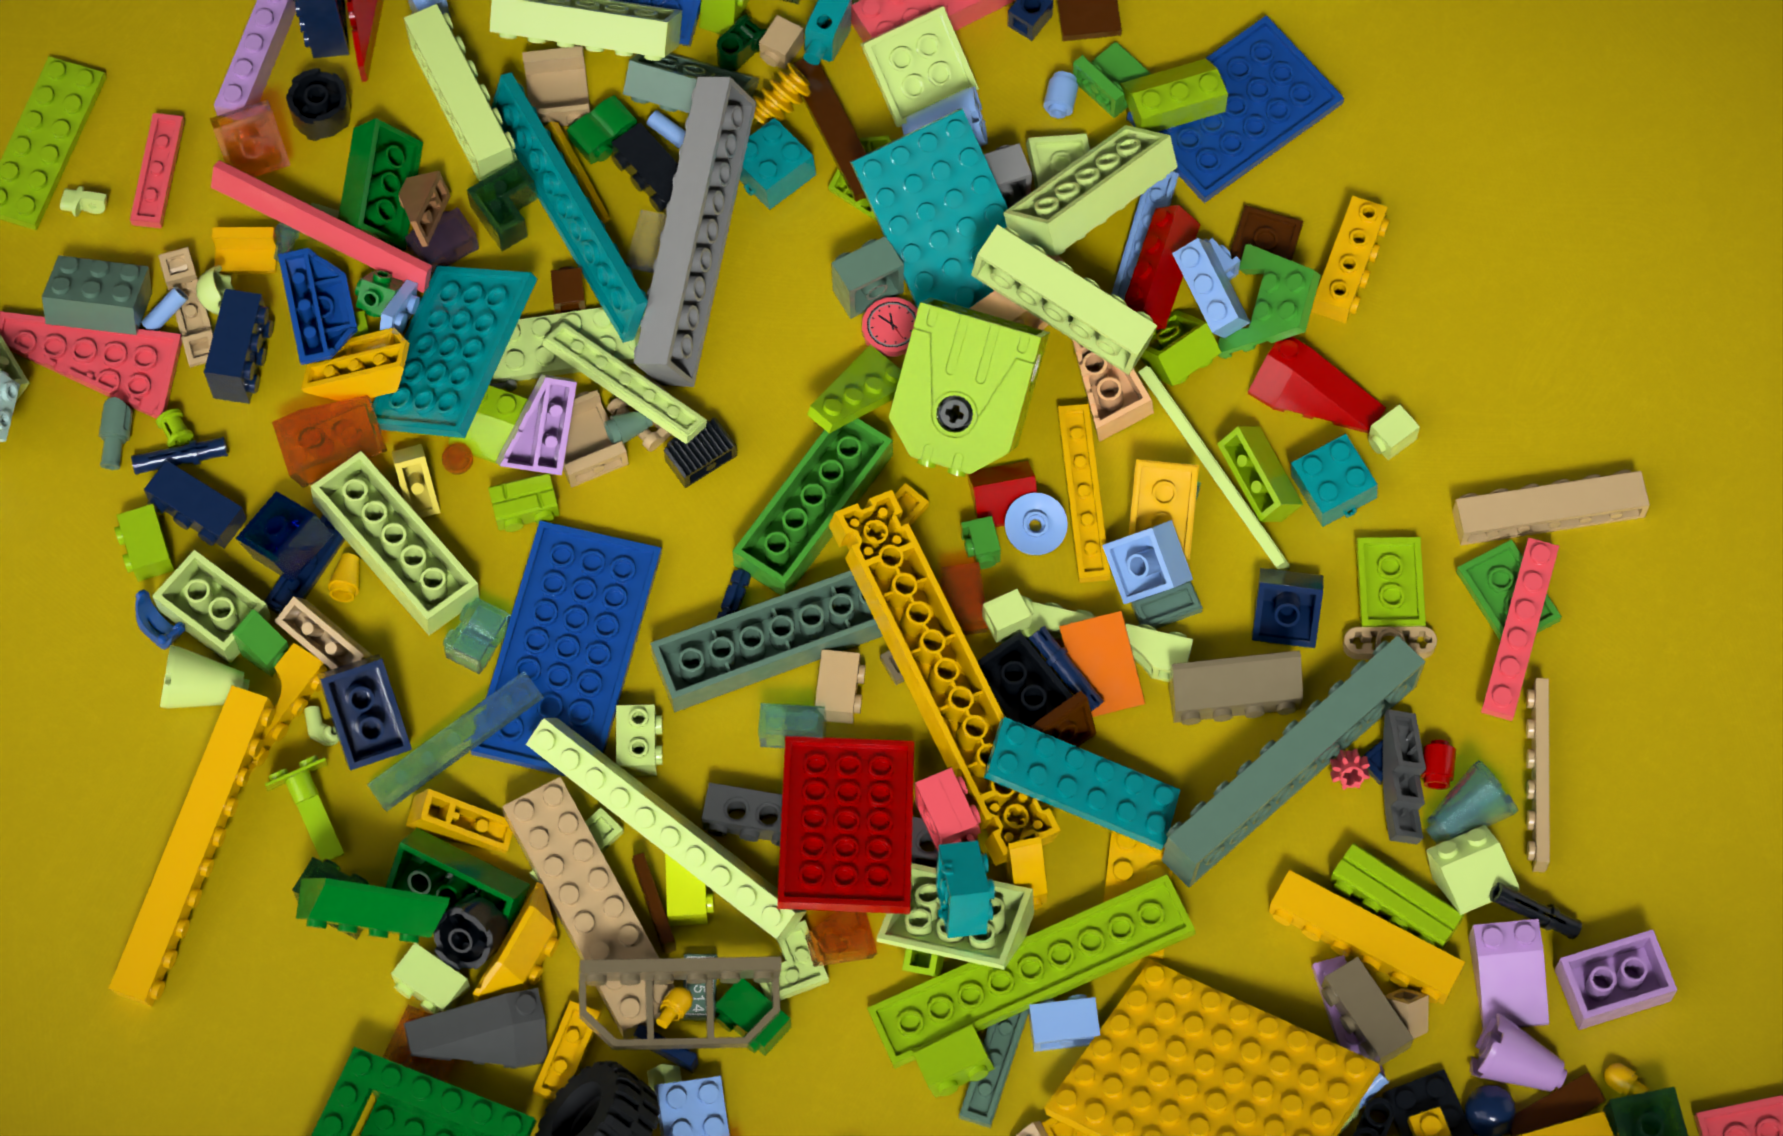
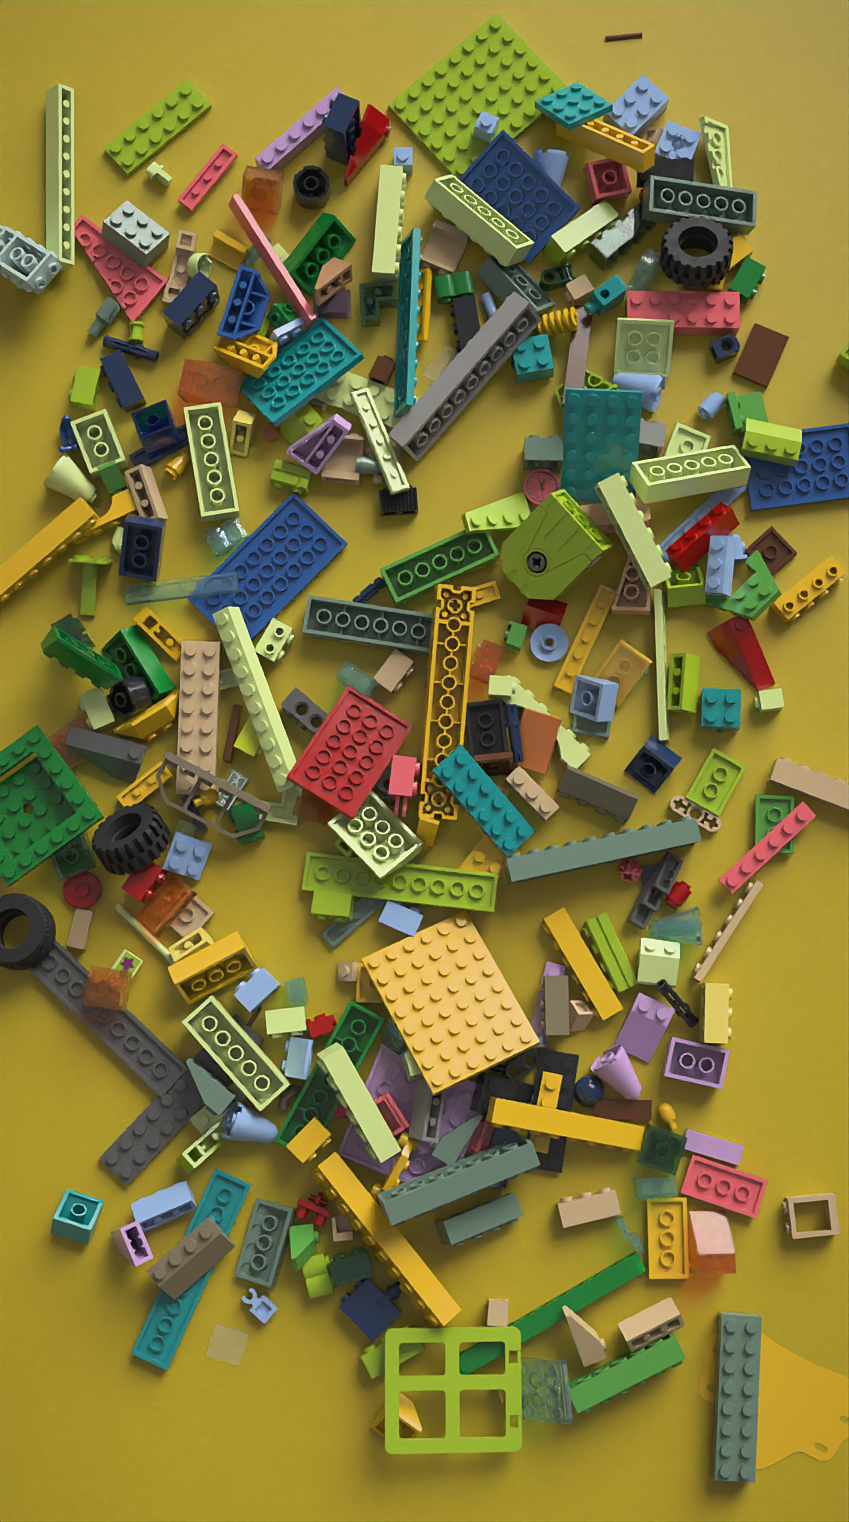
camera: 30 degrees right, 15 degrees up
(165, 309) = (166, 262): light blue hinge -> none
(964, 889) = (384, 826): teal brick -> none
(1143, 742) = (531, 794): none -> tan brick
(1596, 891) = (715, 1013): none -> light yellow brick
(1720, 1087) = (713, 1147): none -> lavender tile

